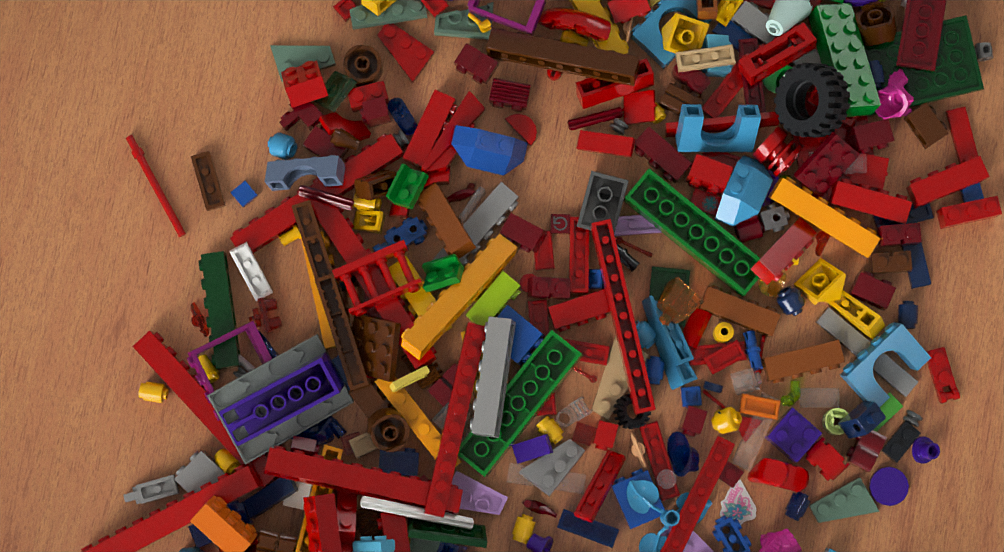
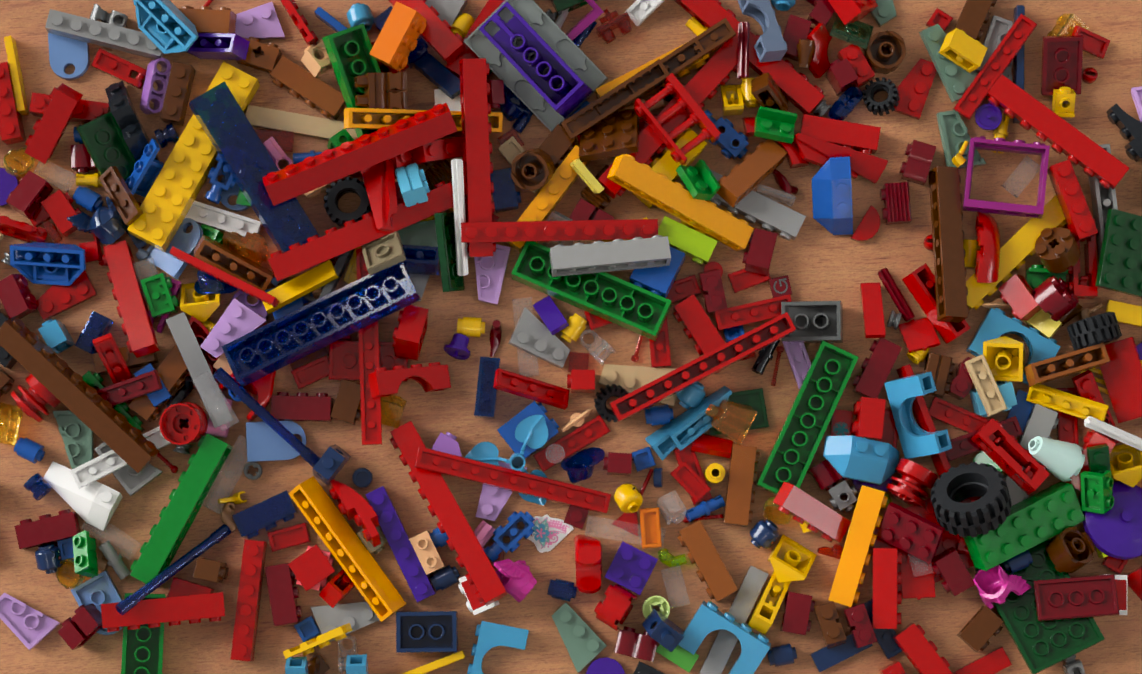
camera: 75 degrees right, 0 degrees up
(394, 76) = (884, 106): none -> black tyre

